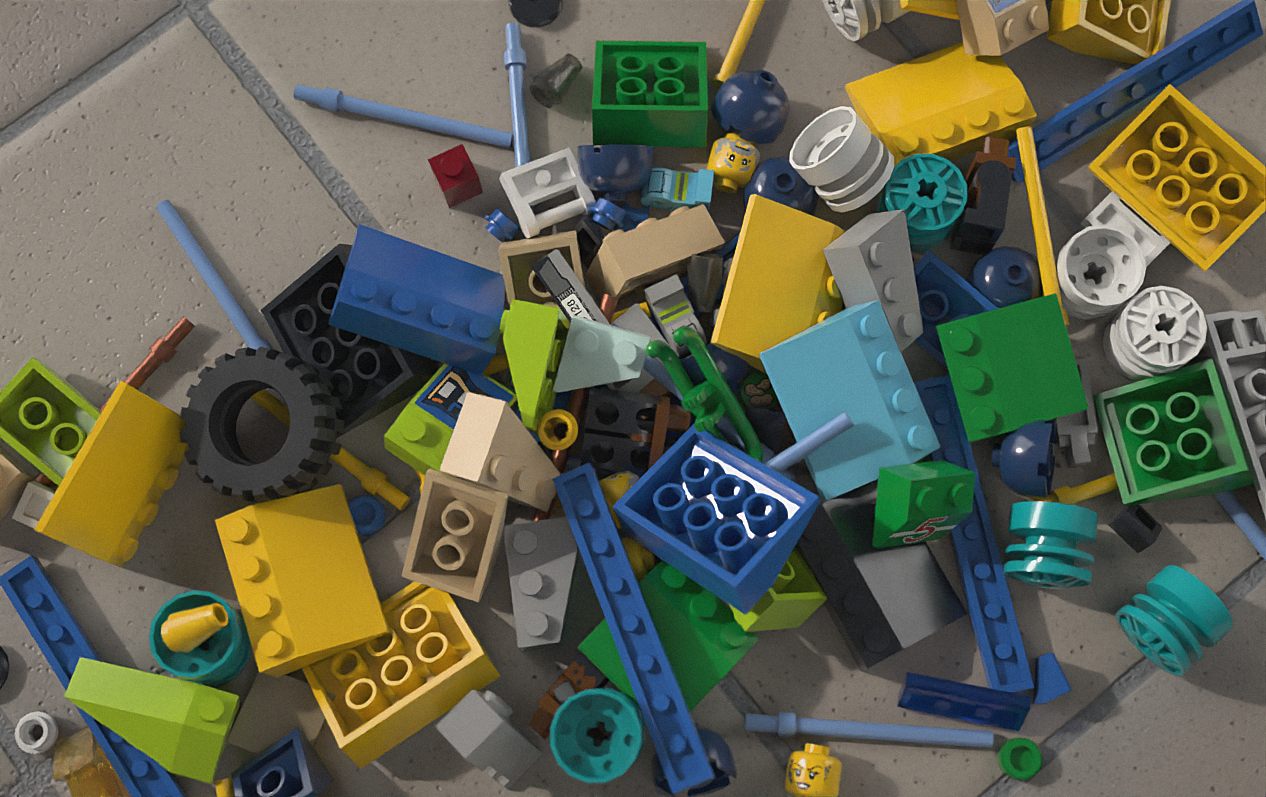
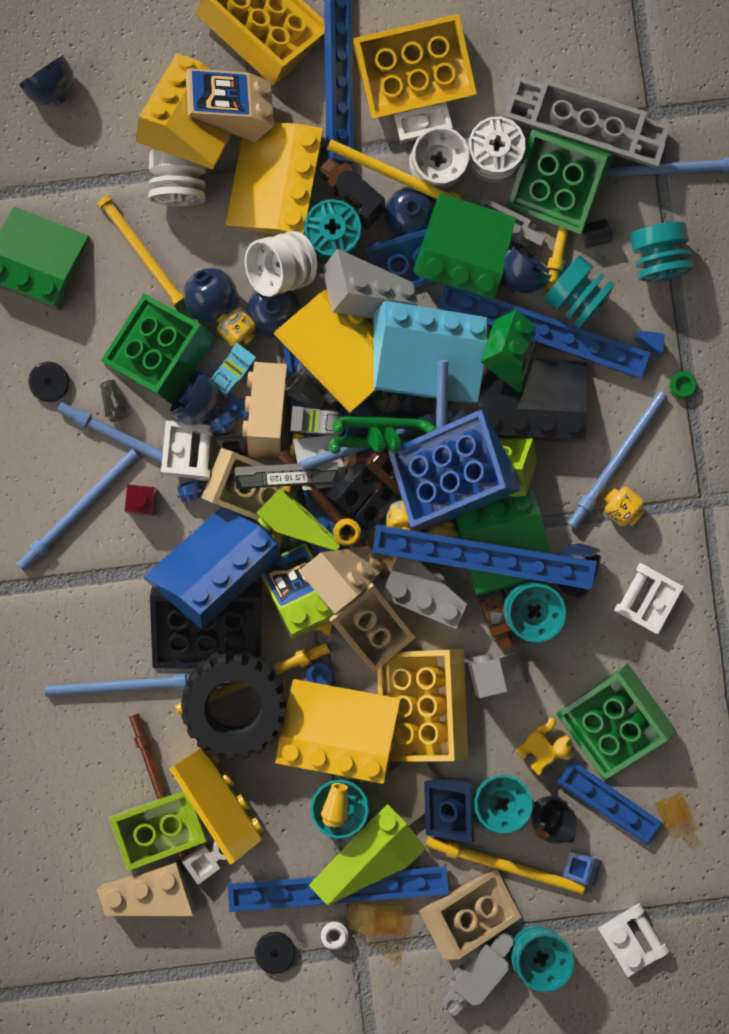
camera: 60 degrees left, 10 degrees up
(599, 355) = (315, 480): light aqua wing -> none
(964, 701) = (634, 397): clear blue tile -> none

